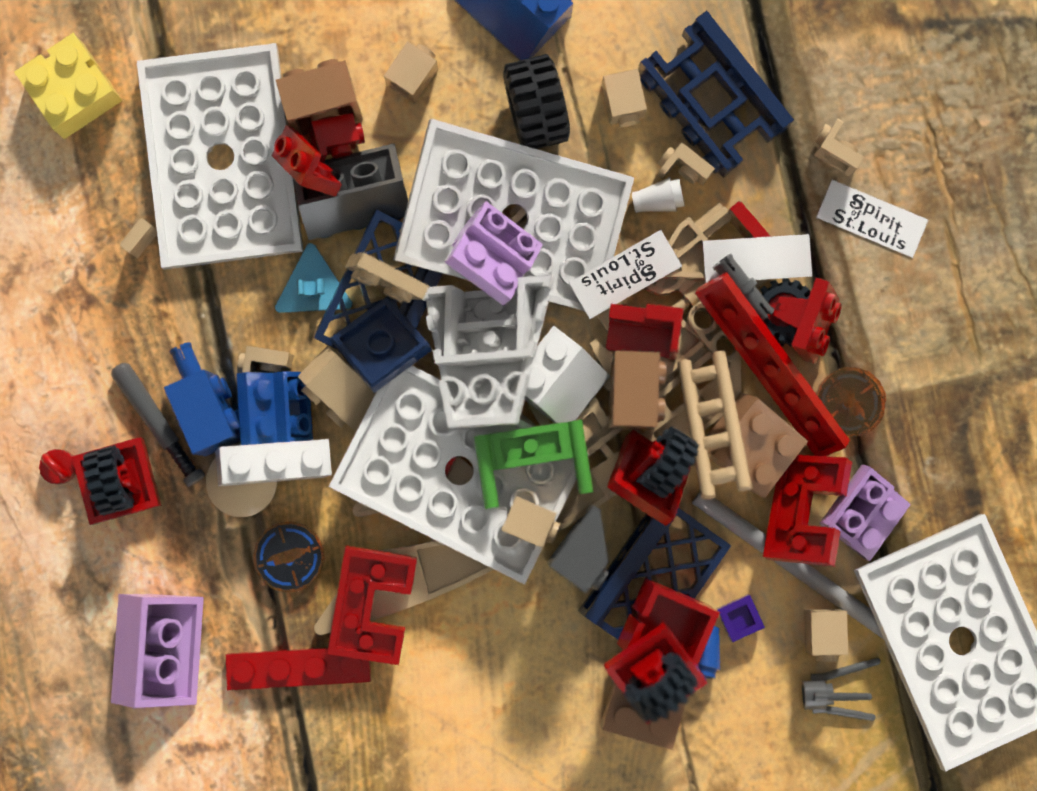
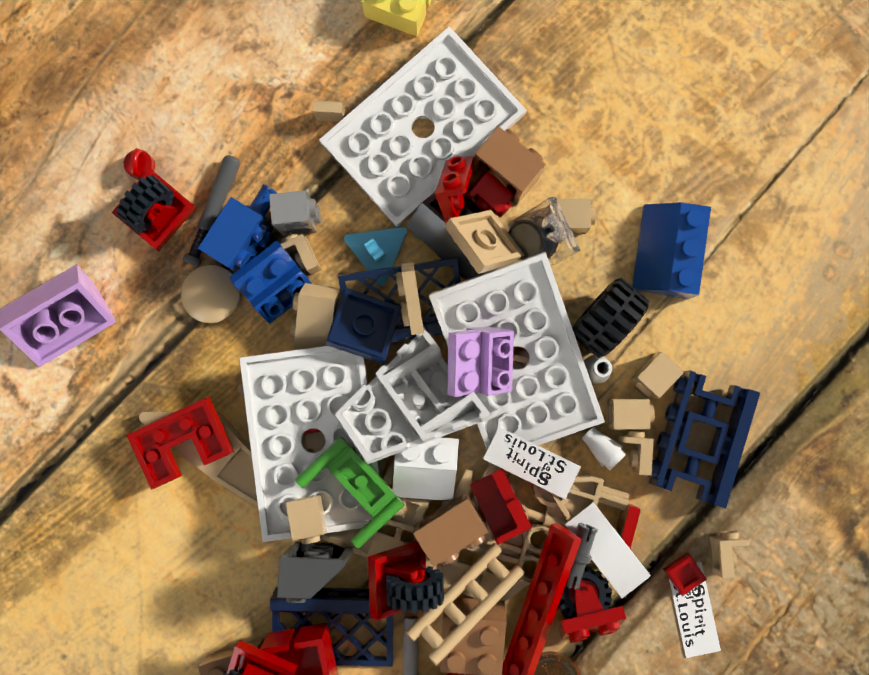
camera: 65 degrees right, 0 degrees up
(220, 338) = (294, 213): none -> light grey brick
(273, 462) = (233, 308): white brick -> none
(289, 556) = (180, 361): tile -> none
(293, 669) = (103, 414): red plate -> none
(378, 171) = (484, 241): none -> tan plate
(405, 118) = (541, 234): none -> piece
(584, 155) = (591, 366): none -> white cone
(643, 148) = (630, 414): none -> tan brick
(832, 203) = (684, 574): none -> red tile

